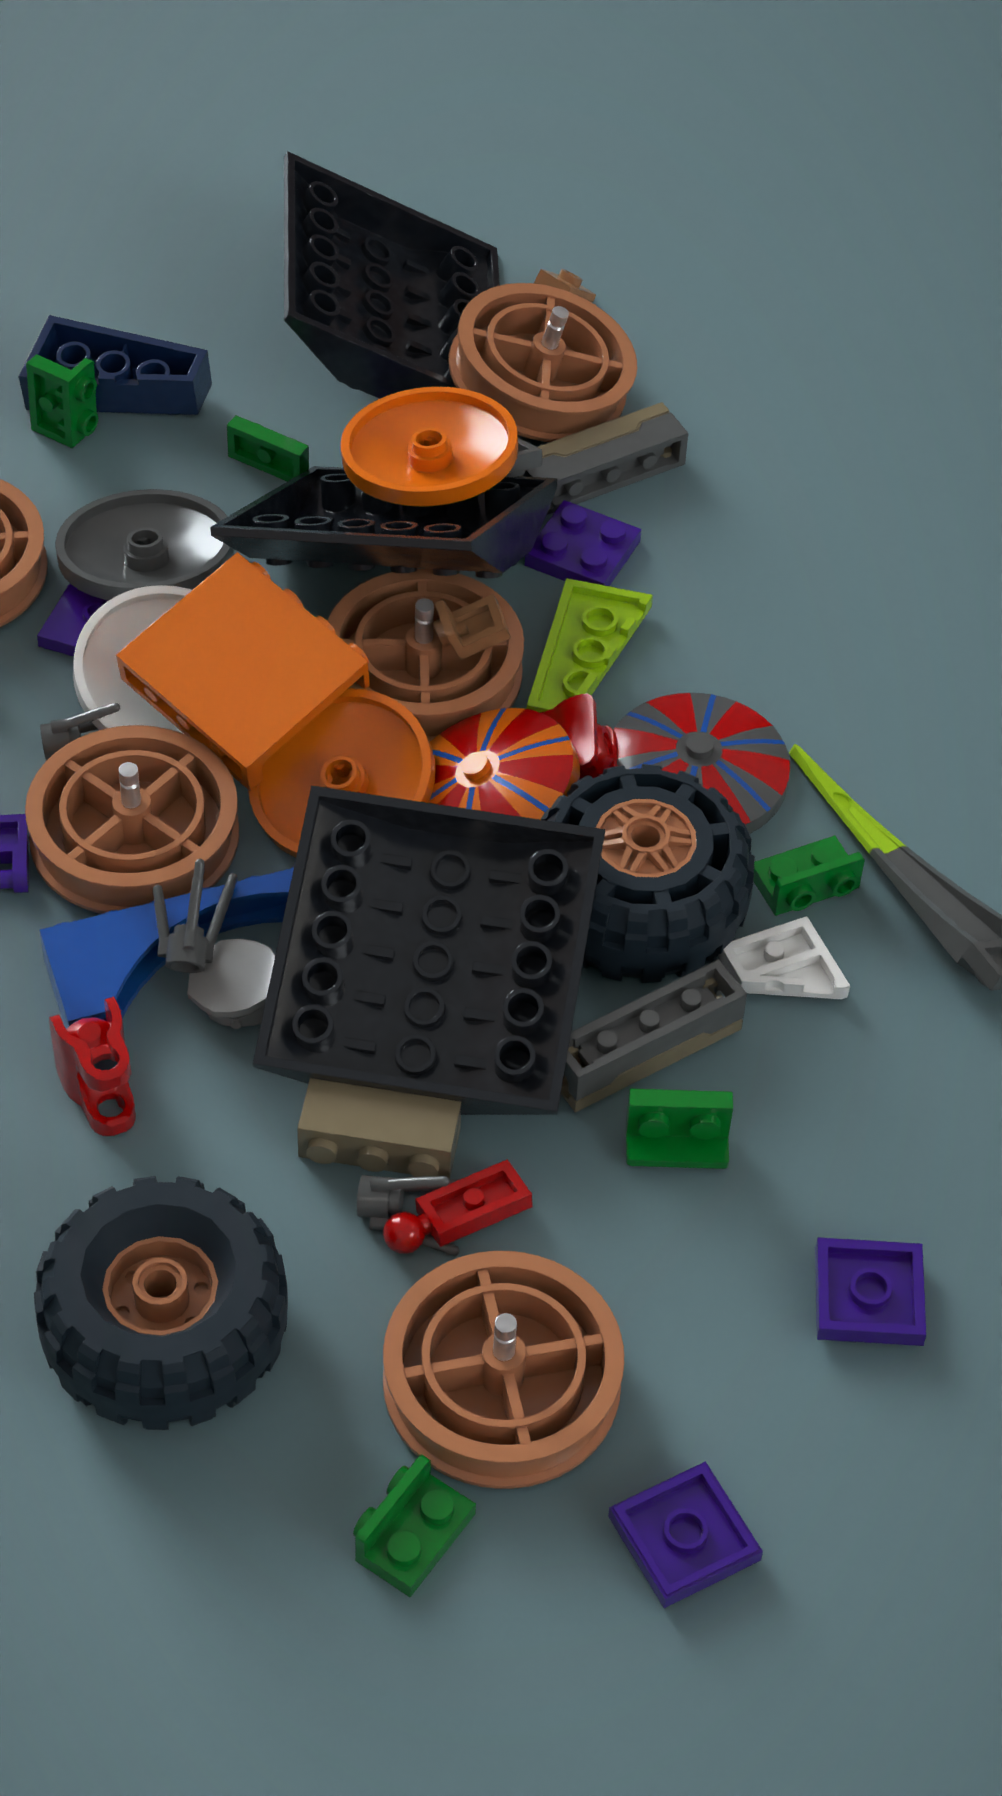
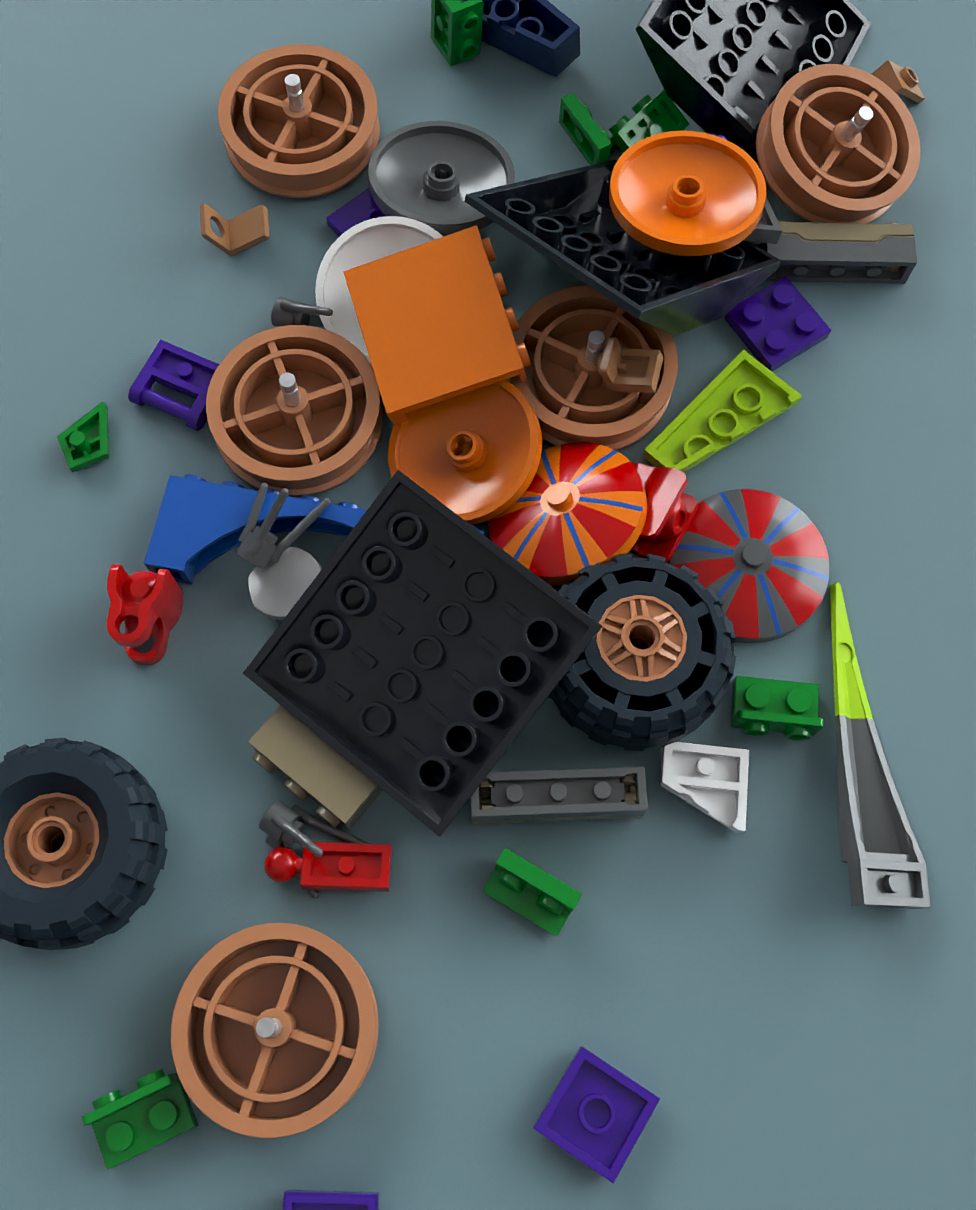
camera: 30 degrees right, 20 degrees up
(327, 418) = (650, 118): none -> green bracket

